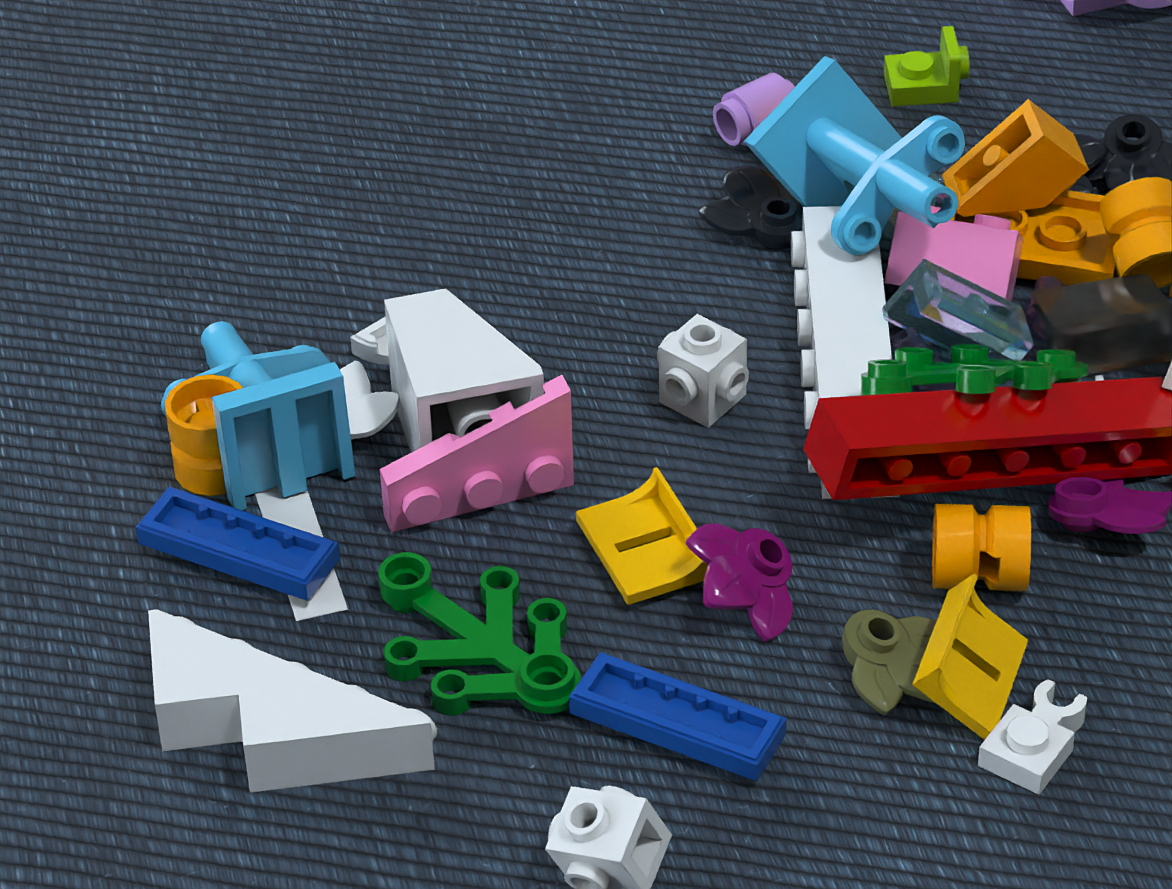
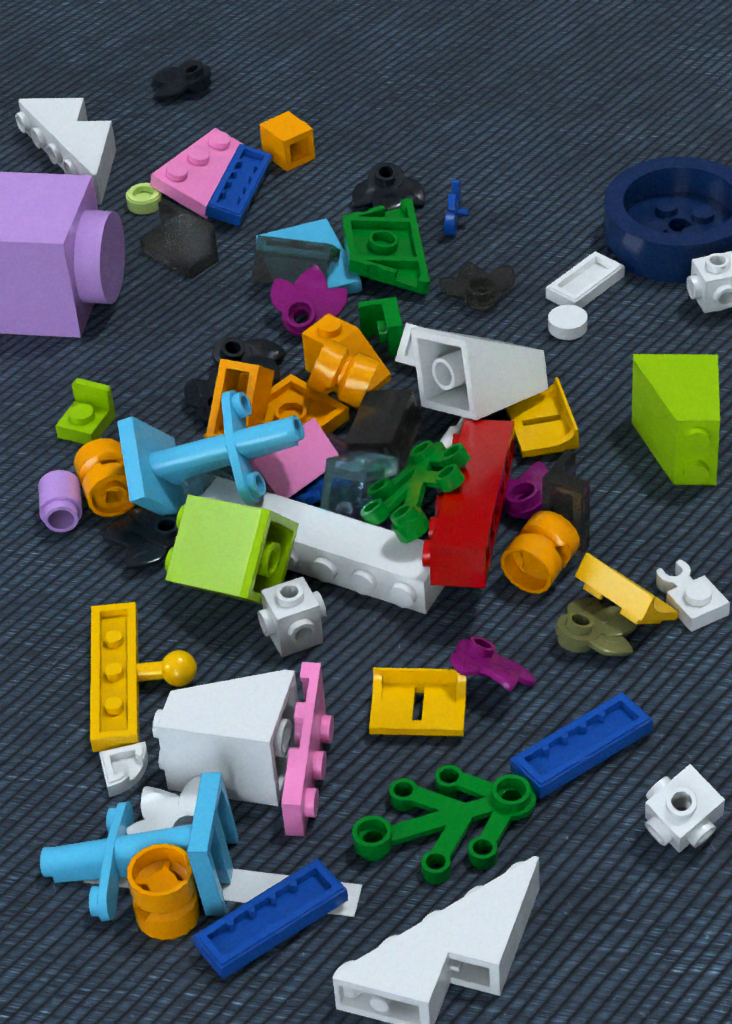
camera: 60 degrees left, 0 degrees up
(536, 267) = (118, 674): none -> yellow plate
(749, 266) = (230, 548): none -> lime slope
(1077, 526) = (568, 496): none -> clear smoke panel

